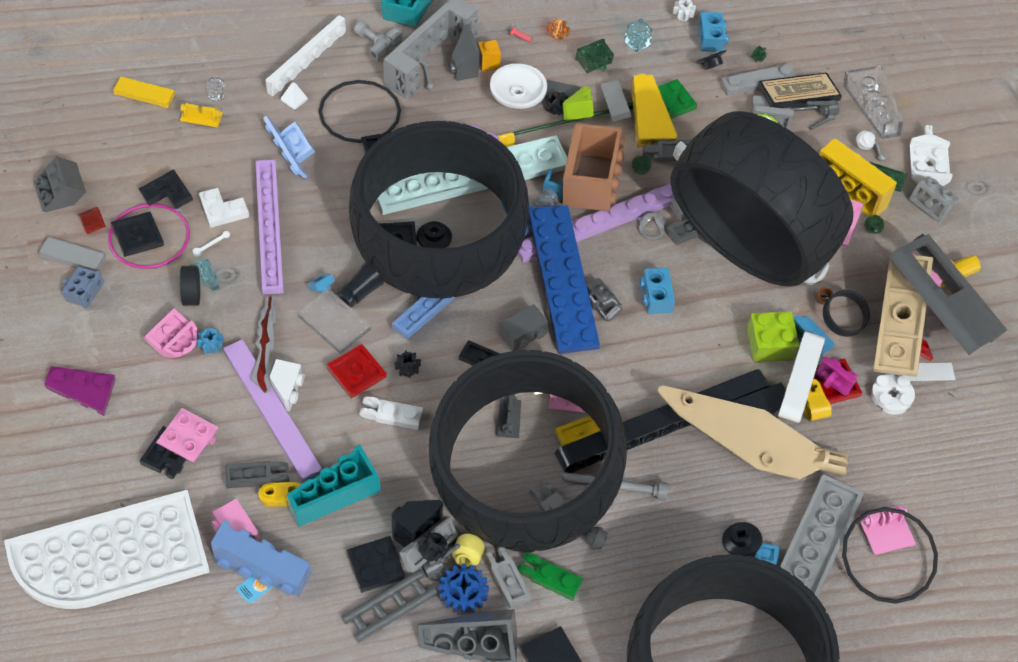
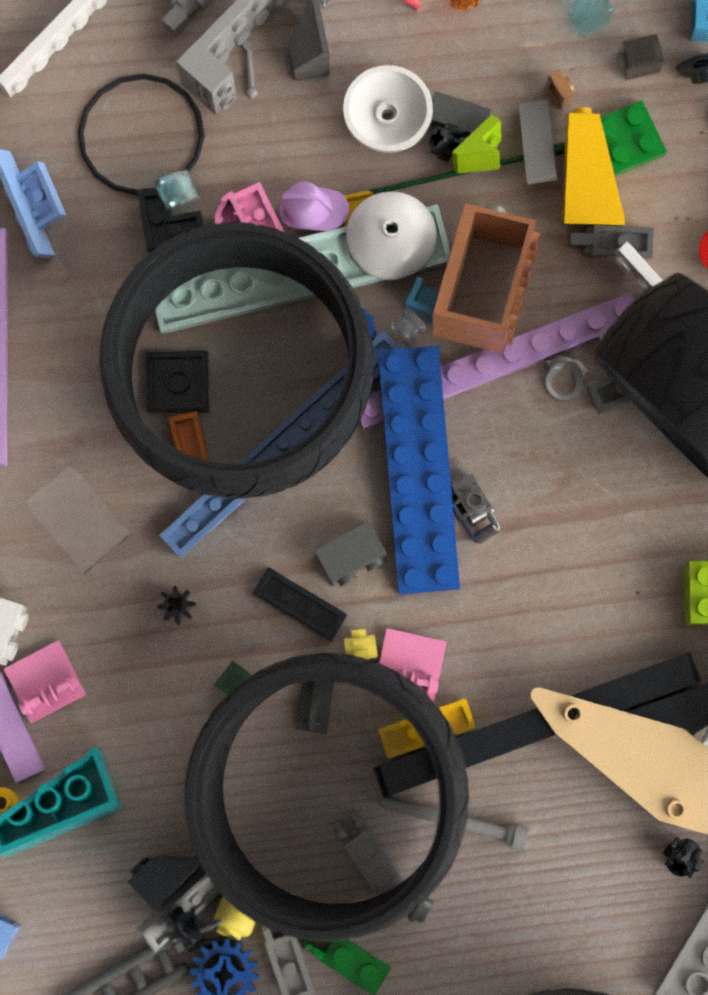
camera: 10 degrees right, 25 degrees up
(294, 96) = (41, 105): white slope -> none
(318, 417) = (44, 682): none -> bright pink hinge
(321, 283) = (61, 455): dark azure plate -> none
(356, 371) = (103, 610): red plate -> none
(360, 285) = (114, 469): black plant -> none
(375, 564) = (108, 921): black plate -> none
(383, 128) = (176, 189): none -> clear light blue bracket
(392, 413) = (152, 682): white hinge -> none
(439, 240) = (245, 384): black piece -> none
(489, 55) = (347, 33): light orange slope -> none
(533, 150) = (385, 253): none -> white dish
(594, 56) = (517, 40): clear green piece -> none
(624, 74) = (560, 89): none -> medium nougat plate
(641, 165) = (560, 271): clear green plate -> none
(656, 286) = (564, 501): dark azure brick -> none
(672, 57) = (640, 57): none -> clear smoke brick
(744, 545) = (637, 921): black piece -> none
(768, 553) = (652, 948): dark azure tile -> none
(773, 497) = (683, 857): none -> black gear

